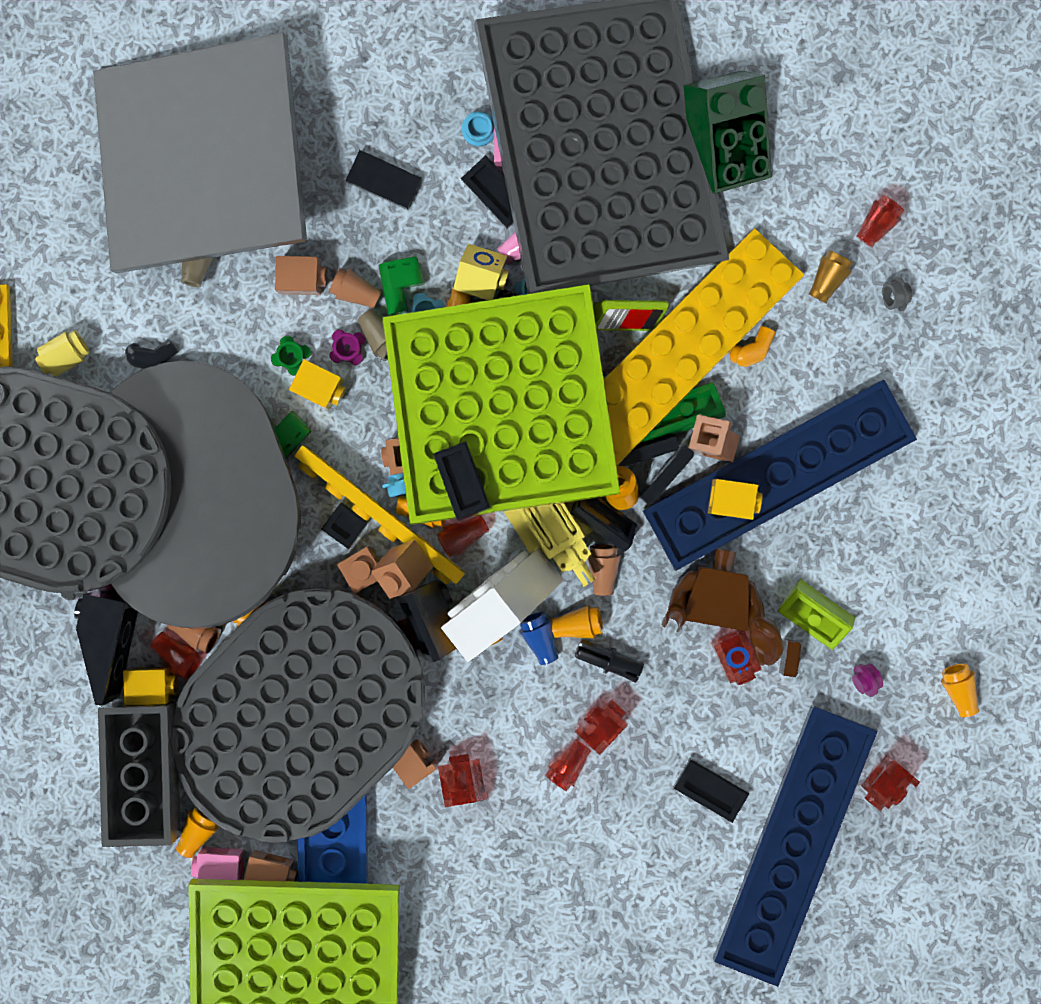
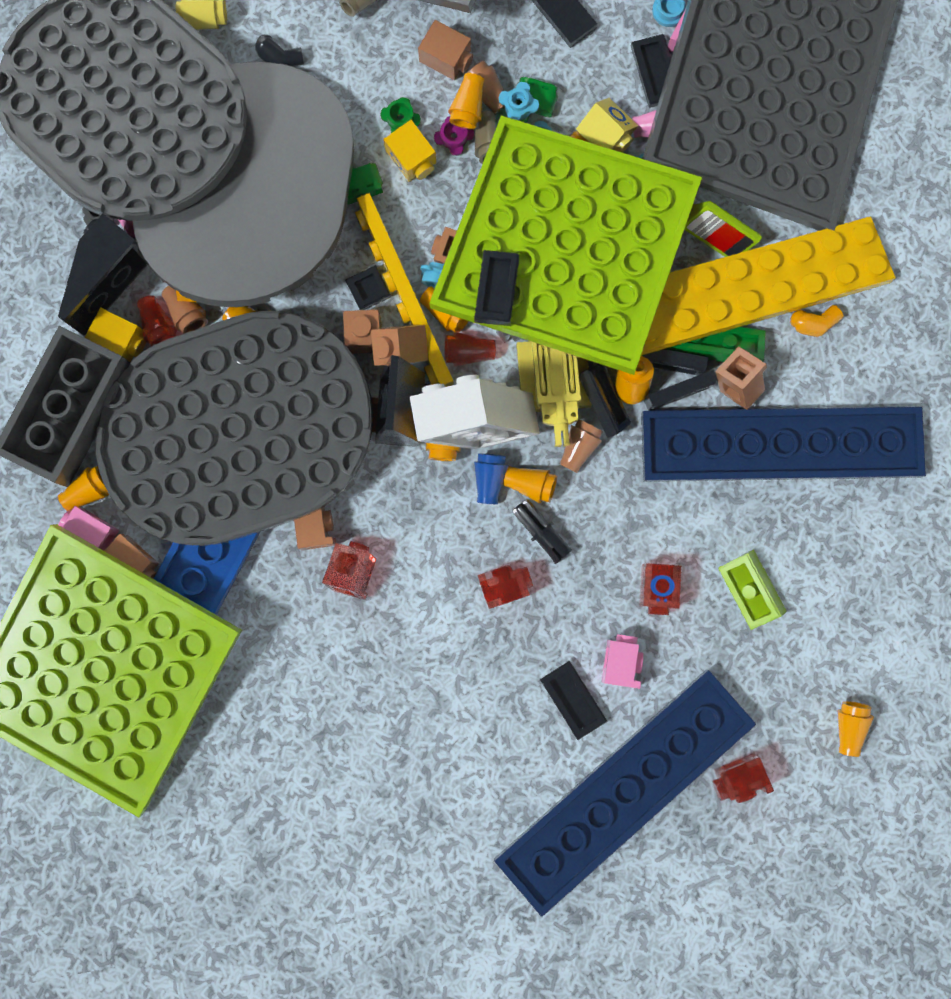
camera: 25 degrees right, 5 degrees down
(346, 318) = (467, 104): none -> light orange cone
(394, 301) = (521, 92): none -> medium azure plate
(568, 765) = (453, 607): clear red cone -> none
(725, 600) = (677, 531): reddish brown torso -> none
(730, 128) = (894, 116): dark green slope -> none
(734, 499) = (733, 440): yellow brick -> none
(737, 738) = (622, 662): none -> bright pink brick
(790, 658) = (709, 614): reddish brown tile -> none
(830, 275) = (920, 290): pearl gold cone -> none
(867, 679) = (770, 672): magenta plate -> none

